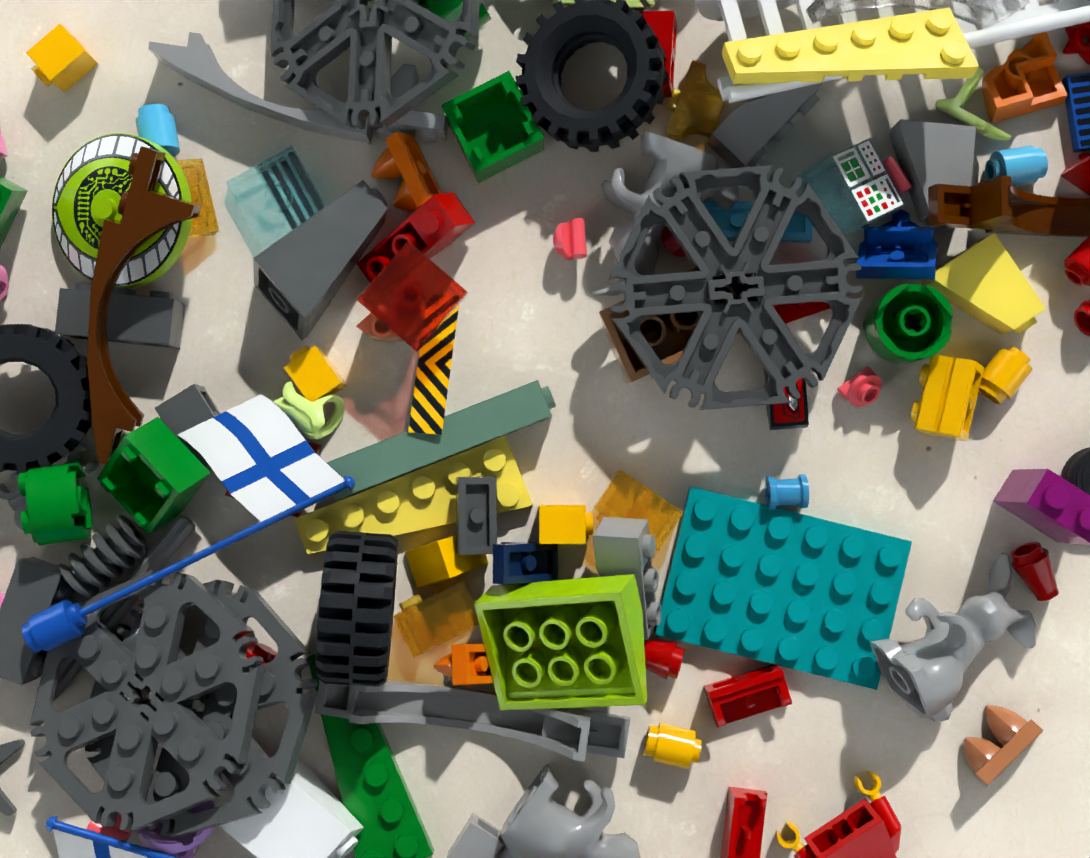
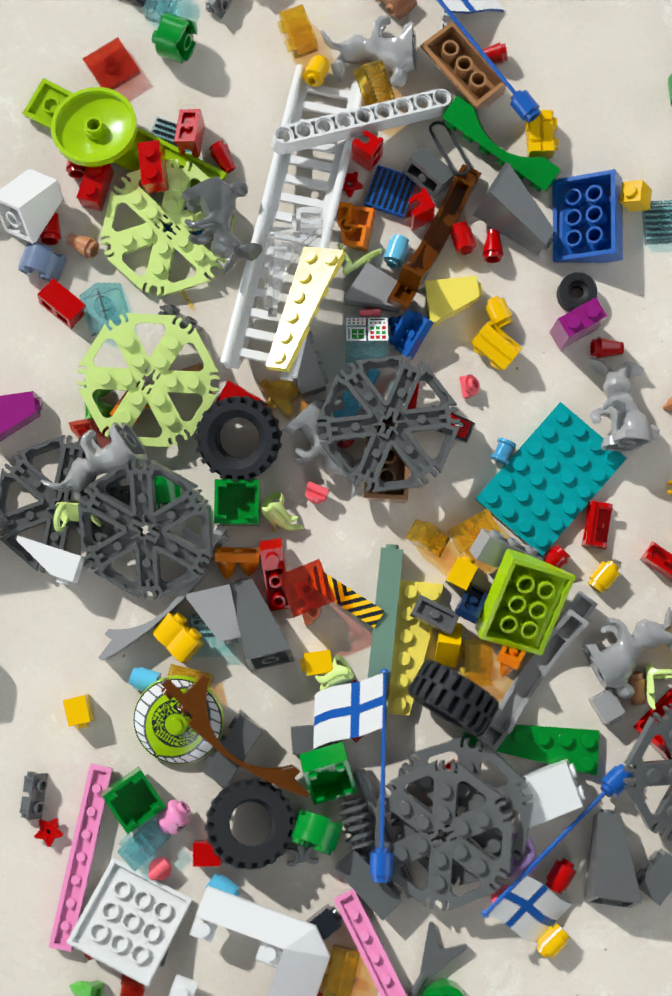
camera: 60 degrees left, 5 degrees down
(243, 145) = (178, 637): none -> yellow brick
(308, 181) = (218, 612): none -> light grey slope
(505, 199) = (277, 515): none -> yellowish green piece
(591, 444) = (428, 537): none -> clear yellow brick
(929, 328) = (456, 336): green brick -> none

